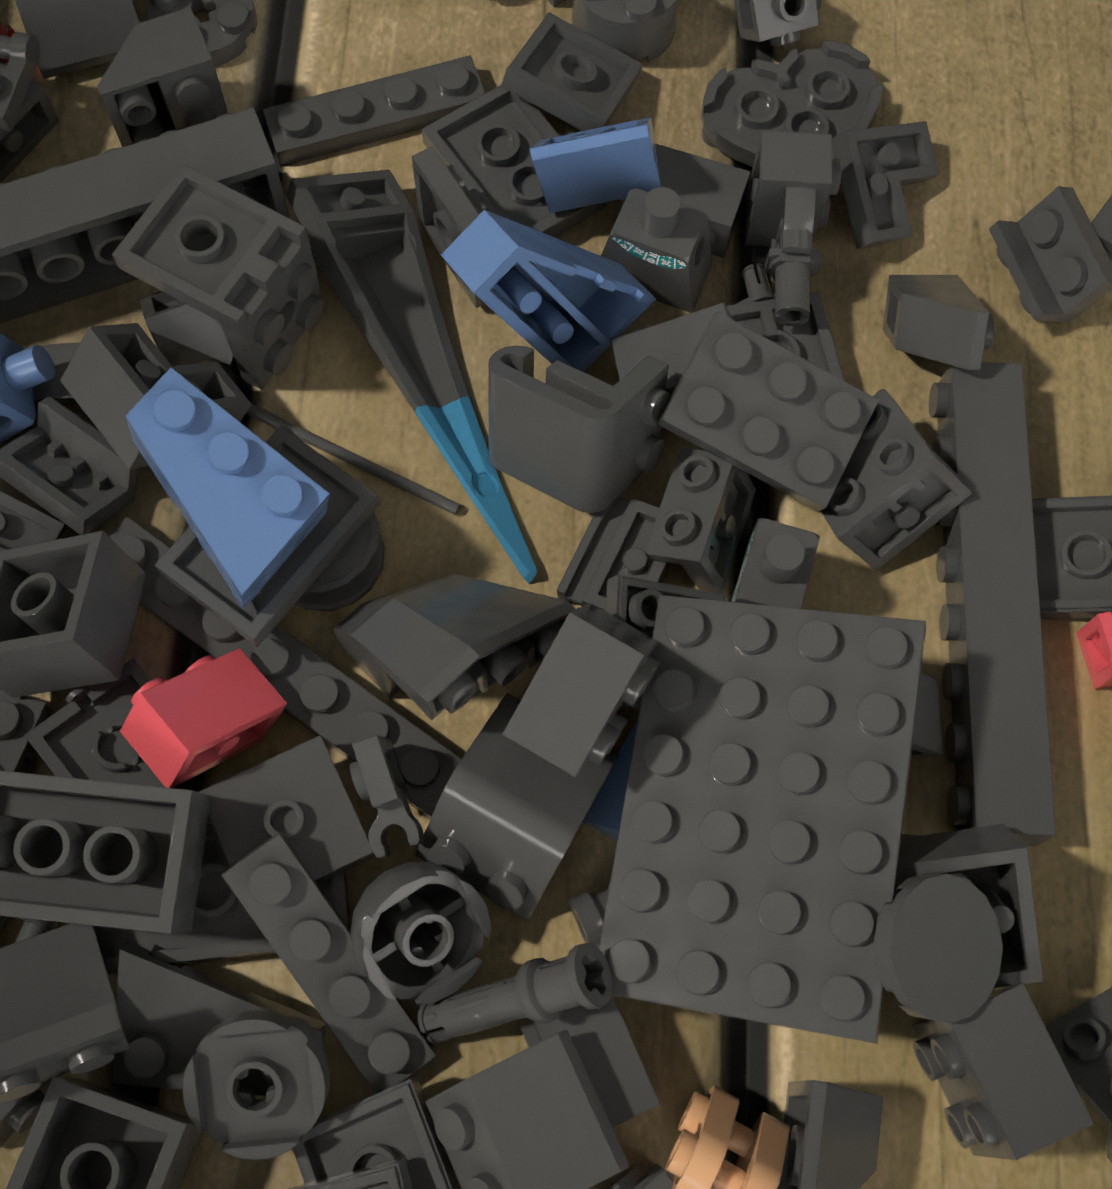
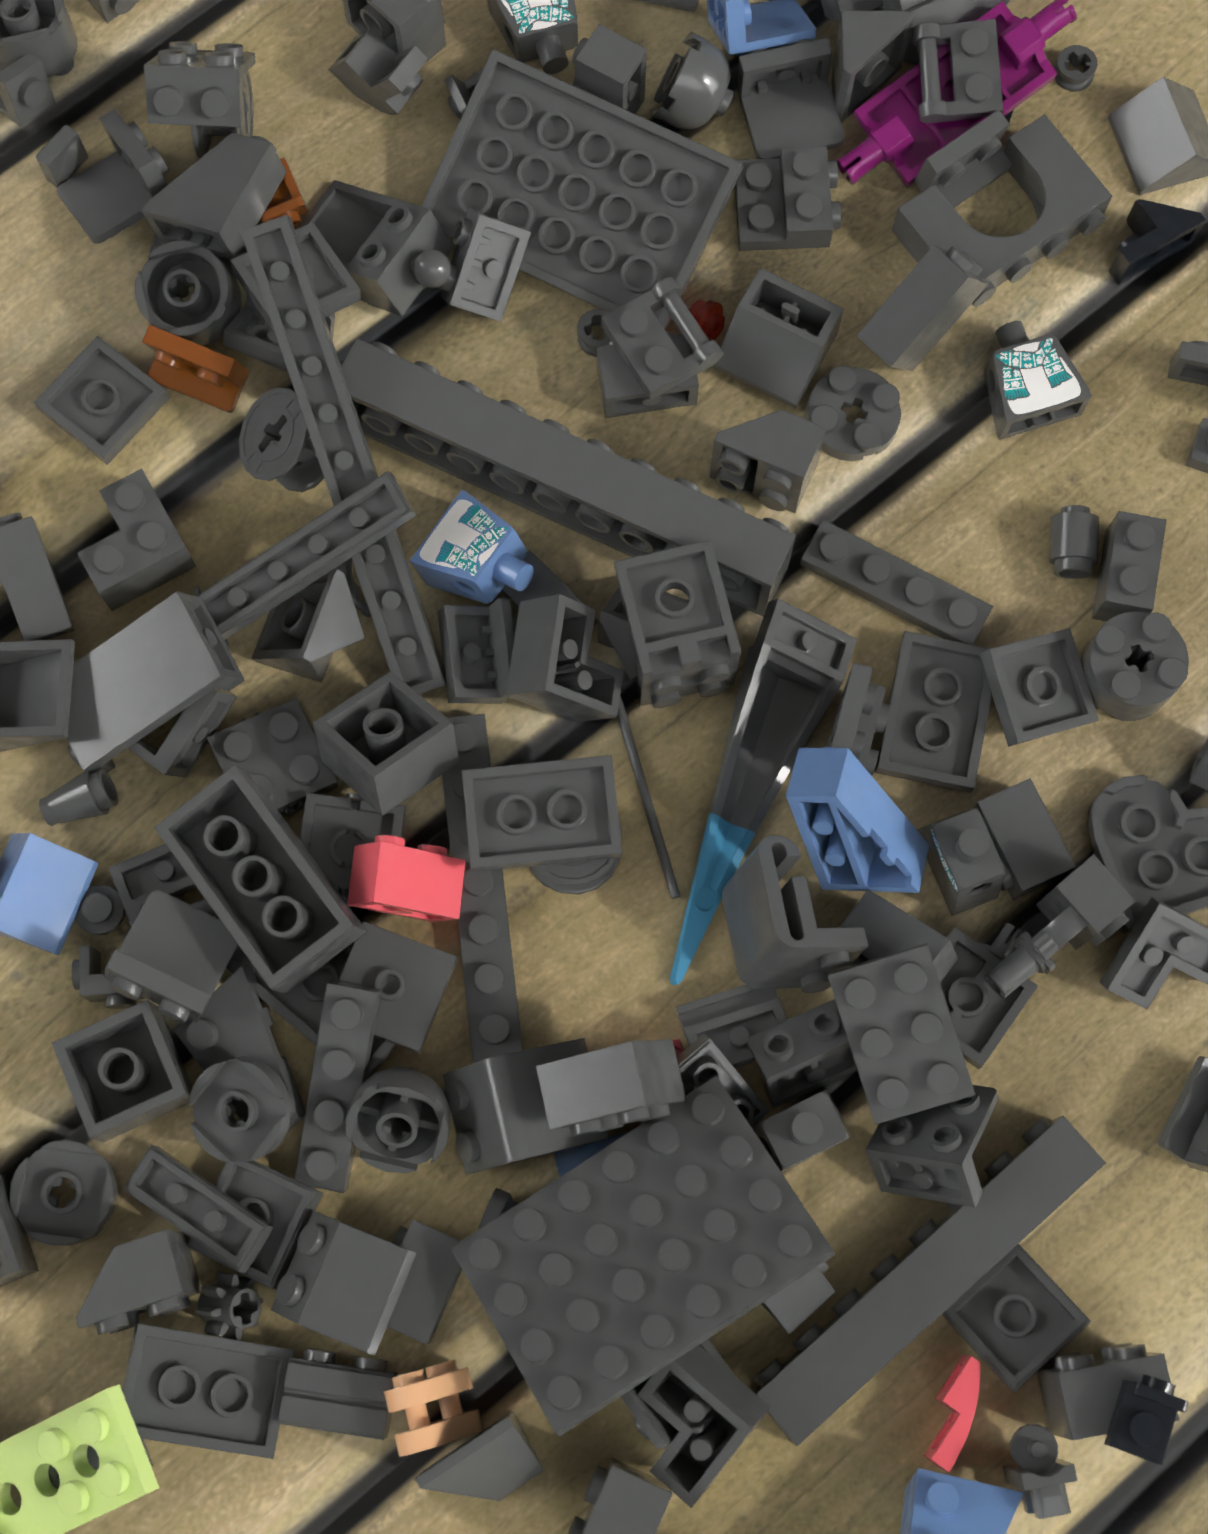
camera: 50 degrees right, 5 degrees up
(227, 483) = (536, 770): medium blue wedge -> none
(380, 779) = (462, 1017): dark grey plate -> none
(450, 638) = (583, 975): dark grey brick -> none
(536, 993) = (421, 1217): dark grey pin -> none
(596, 164) = (981, 765): medium blue slope -> none
(937, 319) = (1087, 1080): dark grey slope -> none
(938, 947) = (644, 1424): dark grey tile -> none

